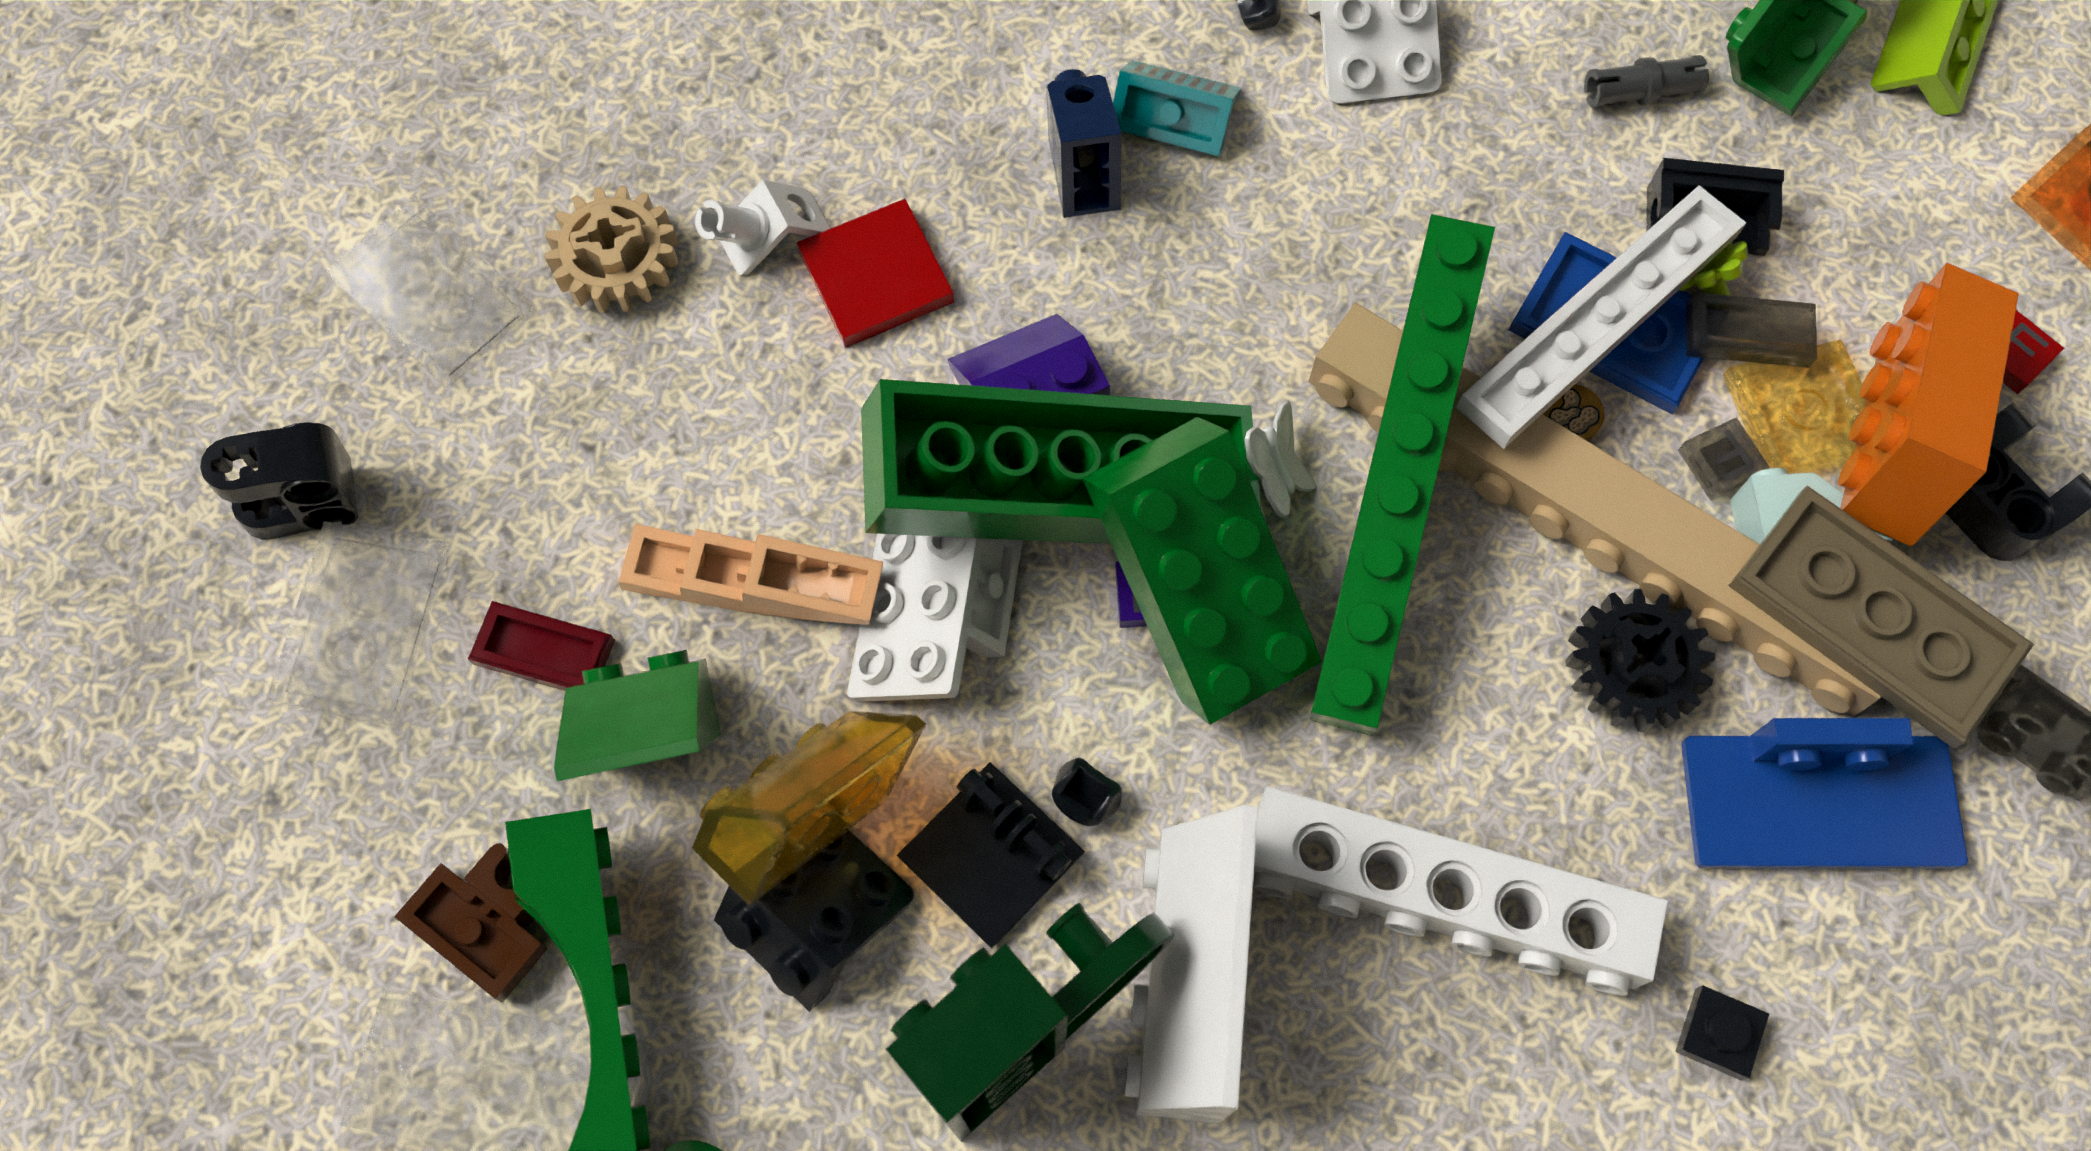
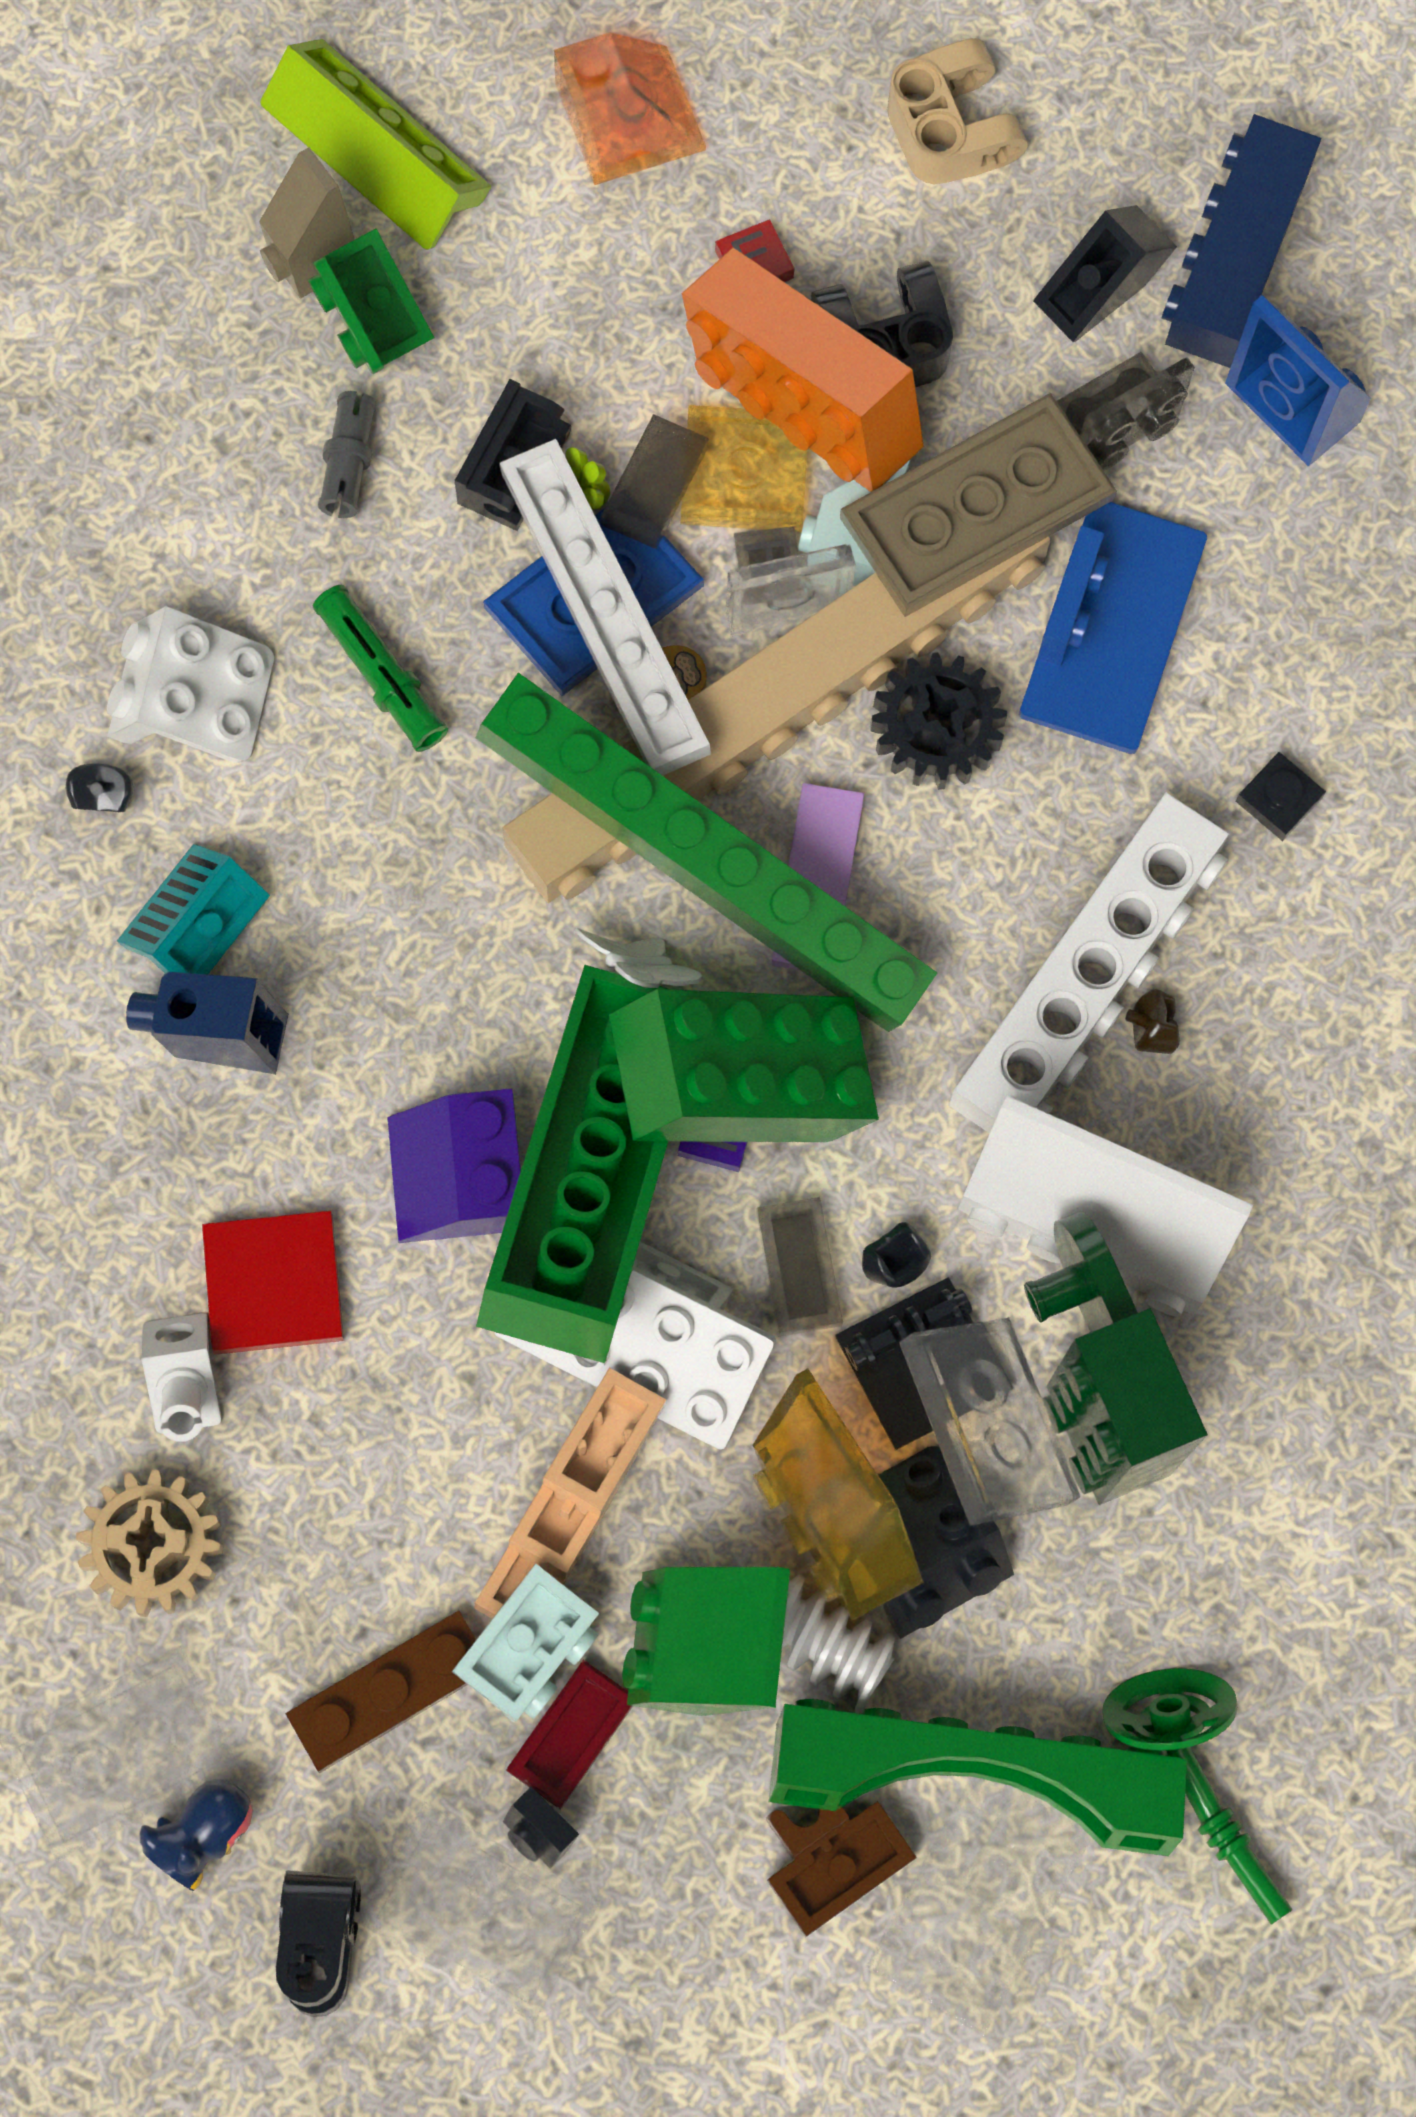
camera: 75 degrees left, 5 degrees up
(369, 368) = (204, 1831): none -> dark blue animal
(438, 642) = (538, 1829): none -> black plate
(540, 484) = (383, 1693): none -> reddish brown plate
(602, 575) = (527, 1644): none -> light aqua bracket
(675, 865) = (834, 1646): none -> white piece
(940, 914) = (989, 1420): none -> clear tile
(1045, 708) = (799, 1266): none -> clear smoke tile
(1423, 976) = (1154, 1023): none -> dark brown piece
(1449, 188) = (419, 721): none -> green pin
(1464, 600) = (825, 841): none -> lavender tile
(1702, 464) = (786, 589): none -> clear tile

